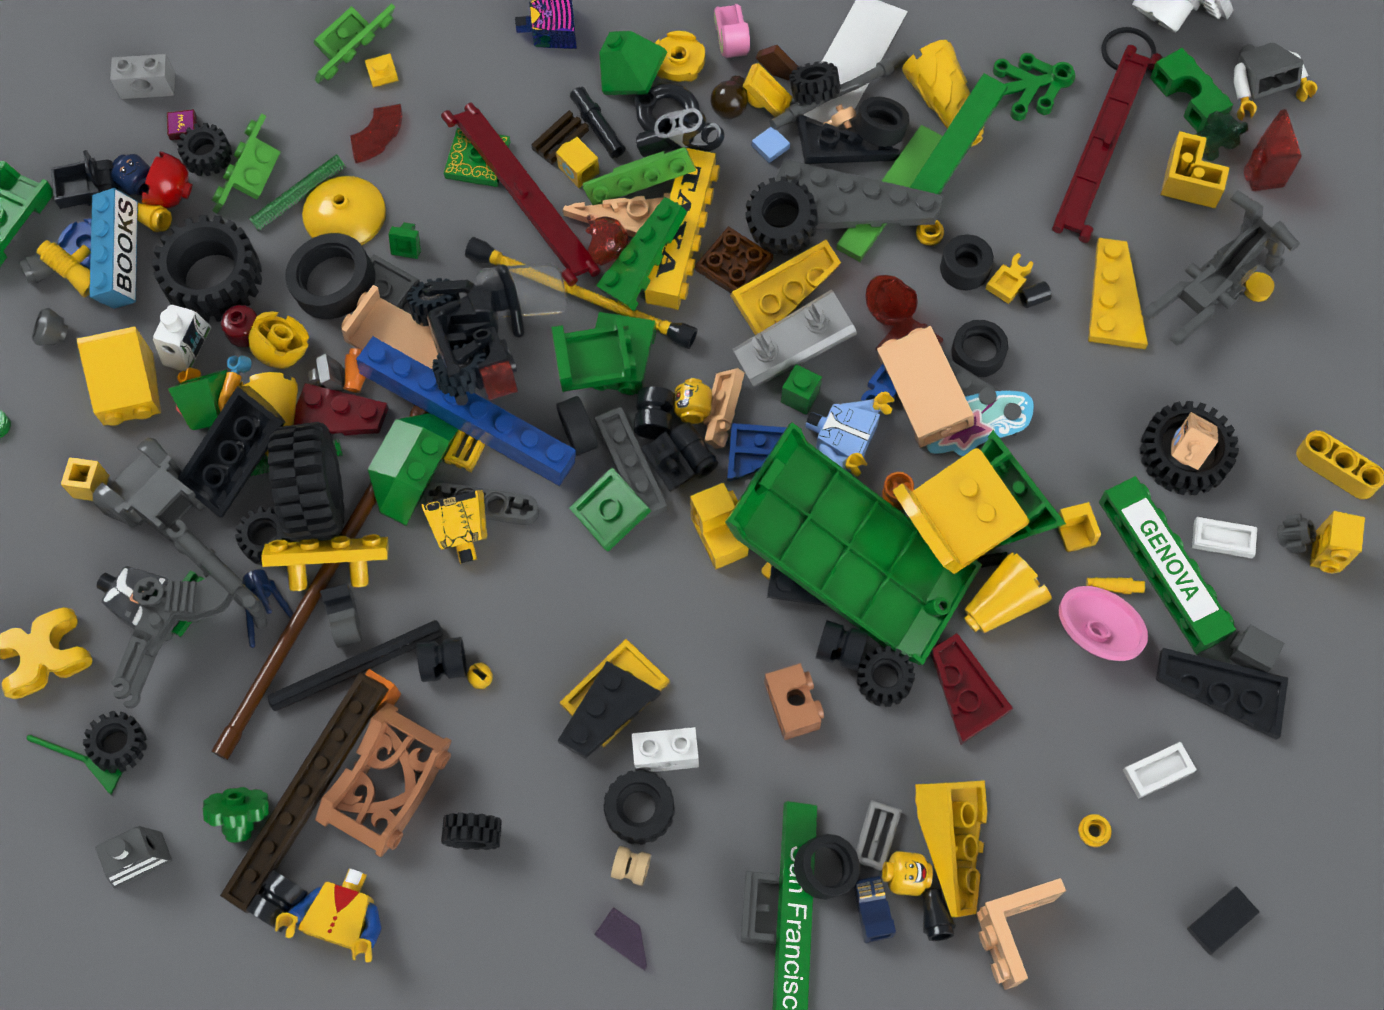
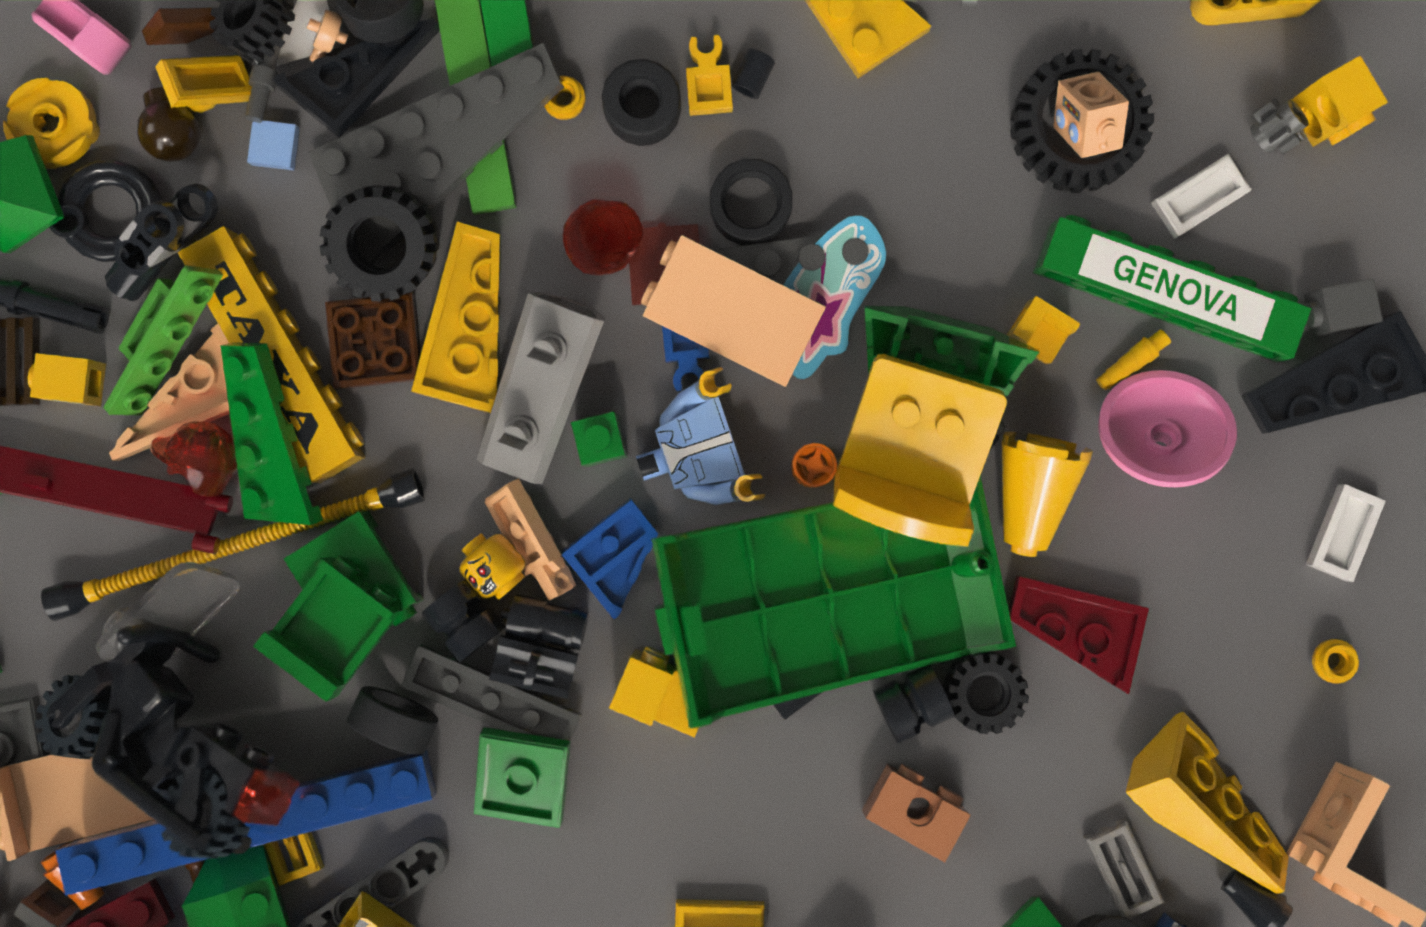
camera: 40 degrees left, 20 degrees up
(907, 873) = (1193, 887): yellow head -> none

